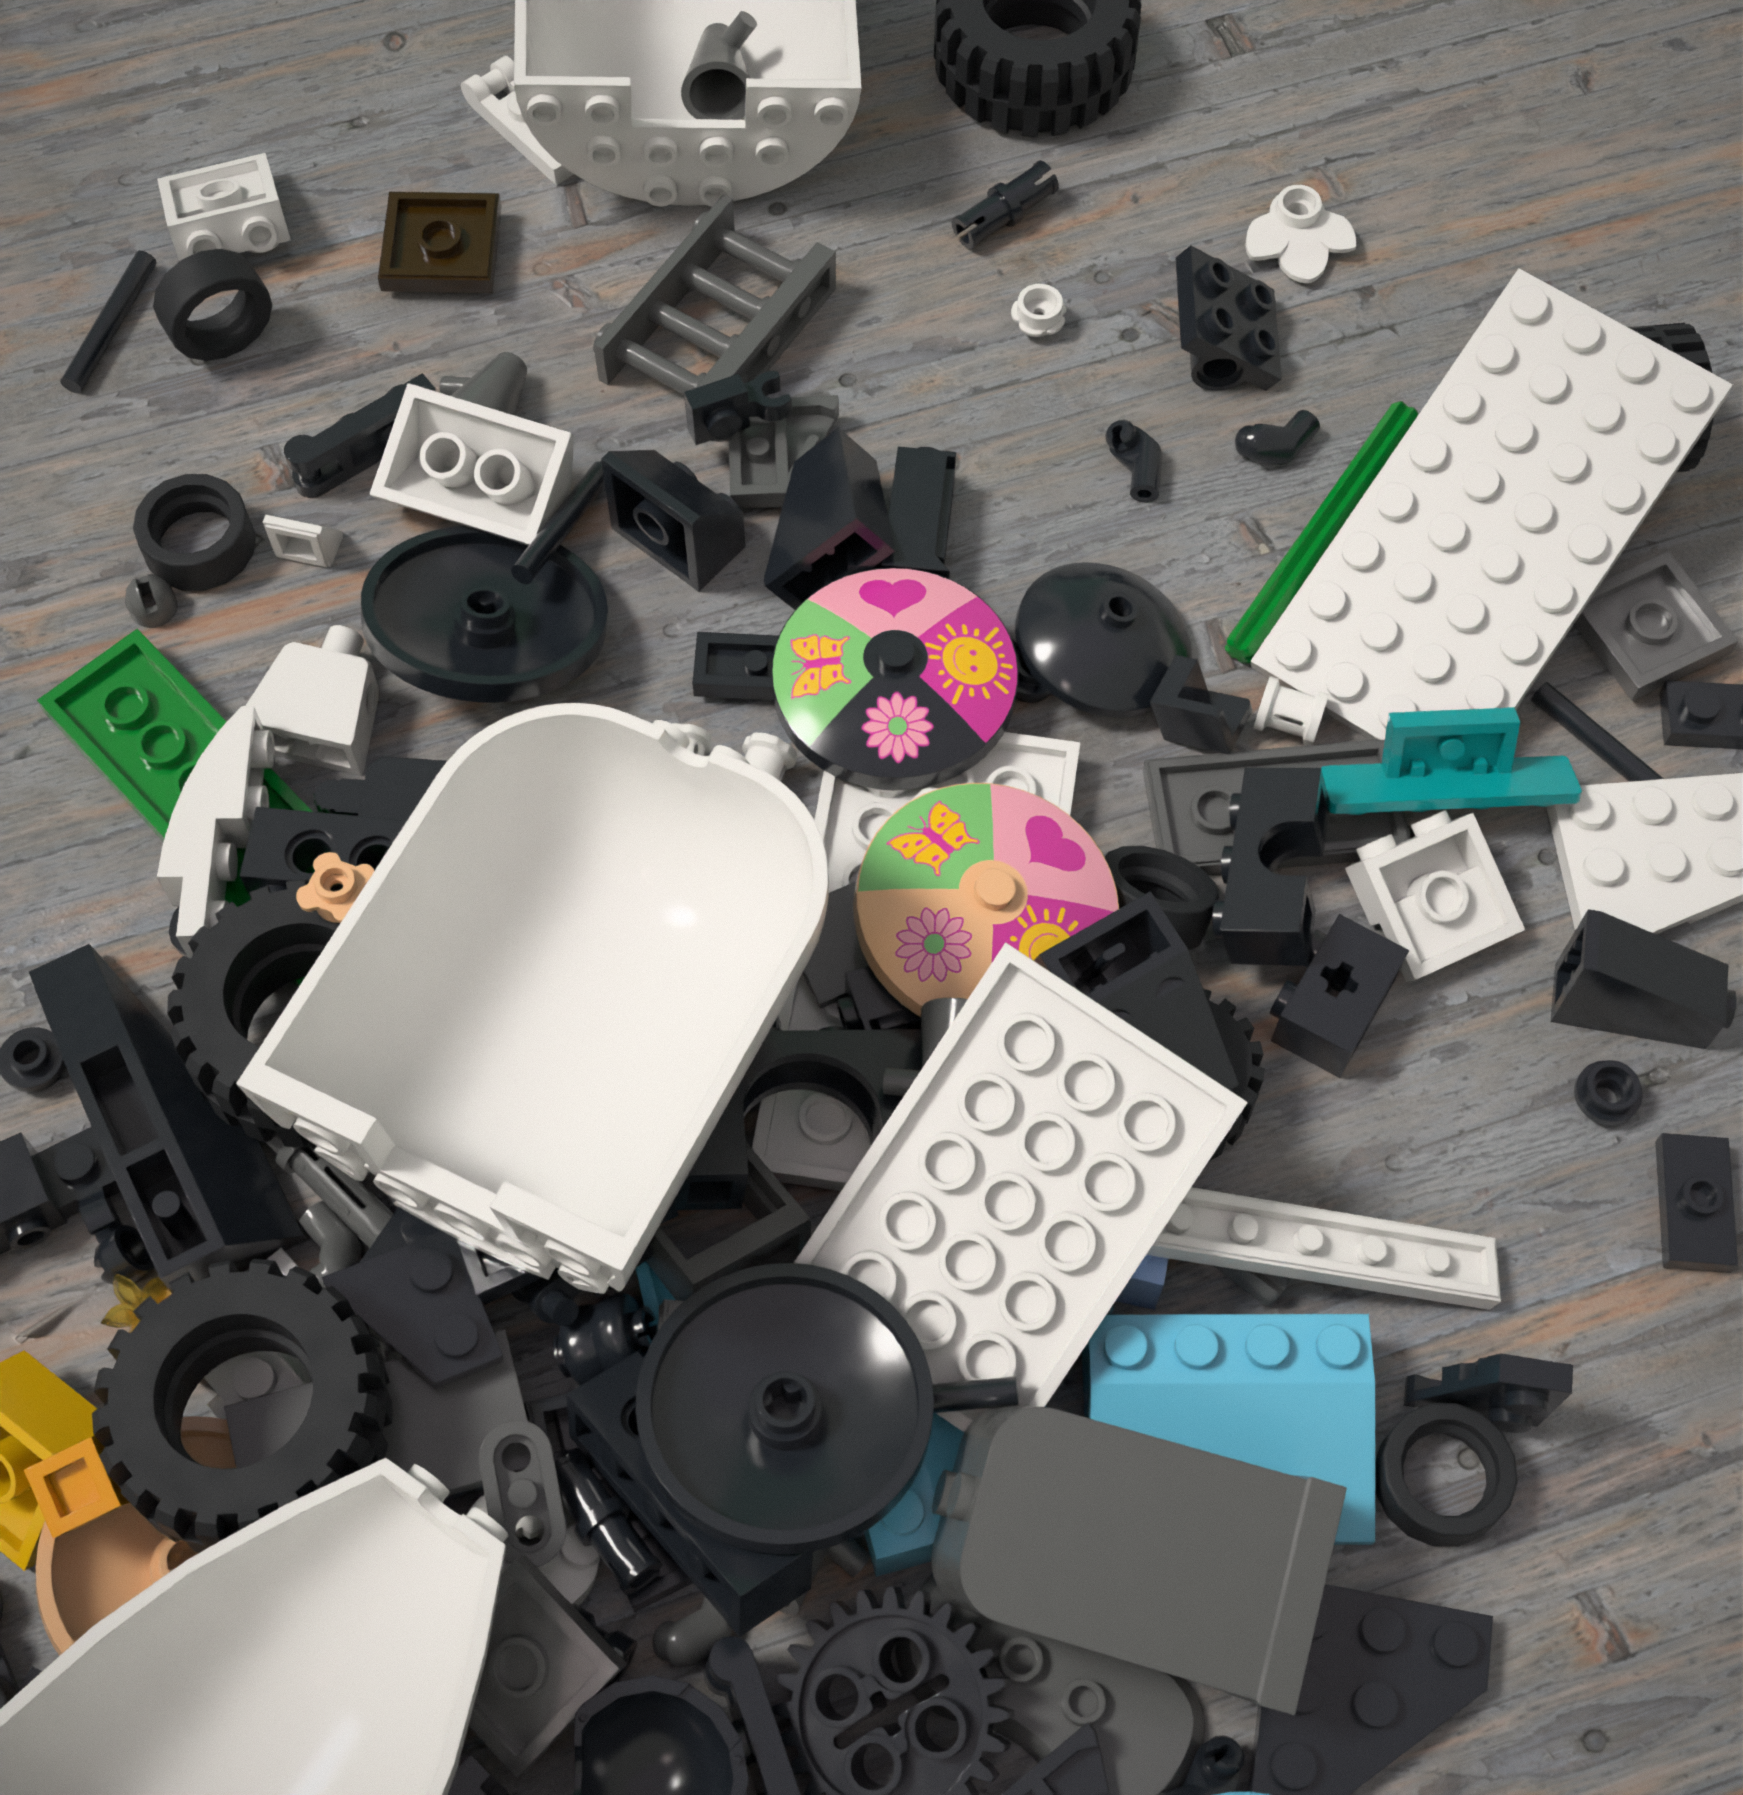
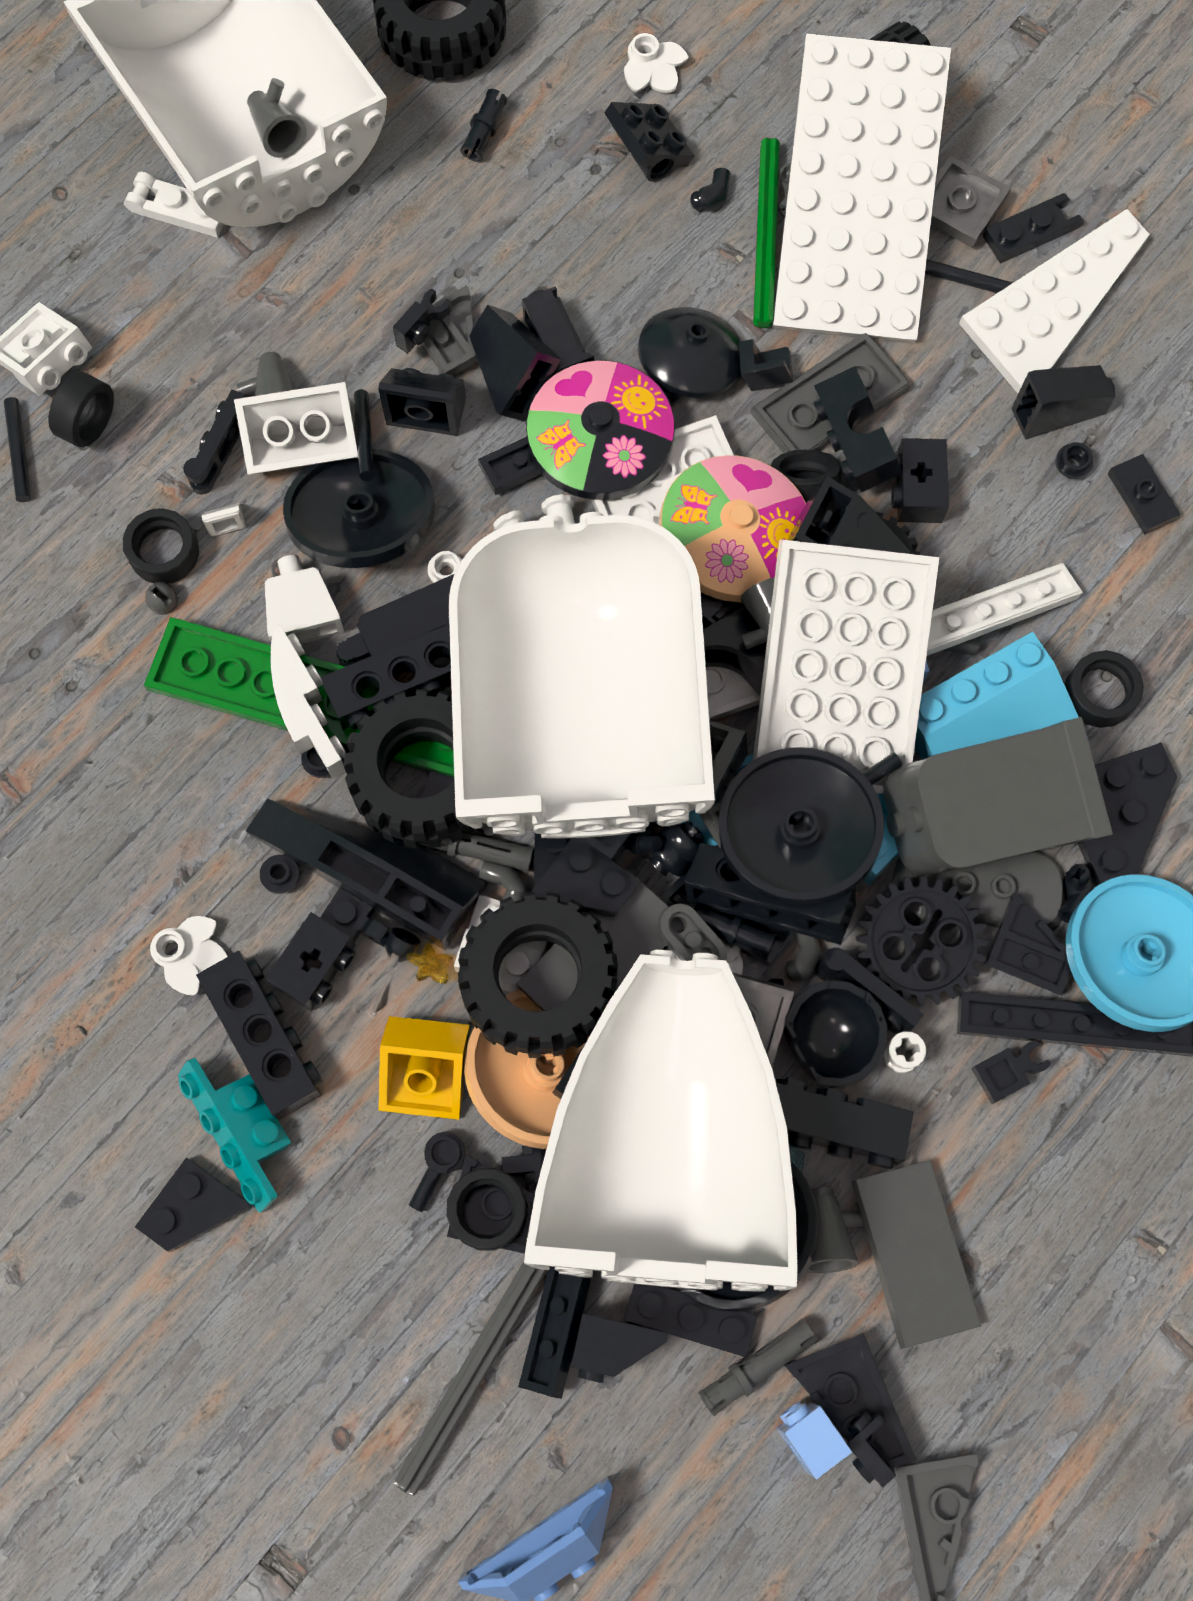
camera: 30 degrees left, 10 degrees up
(74, 1487) = (479, 1059): light orange plate -> none
(330, 871) = (408, 706): light nougat plate -> none
(440, 242) = (179, 305): dark brown plate -> none
(773, 319) = (399, 257): dark grey fence -> none
(1039, 310) = (541, 172): white plate -> none
(1139, 455) = (647, 238): black arm -> none
(1290, 711) = (810, 342): white bush -> none
(1435, 893) = (937, 401): white plate -> none
(1451, 764) = (911, 330): teal bracket -> none
(1503, 1387) = (1111, 635): black wing -> none

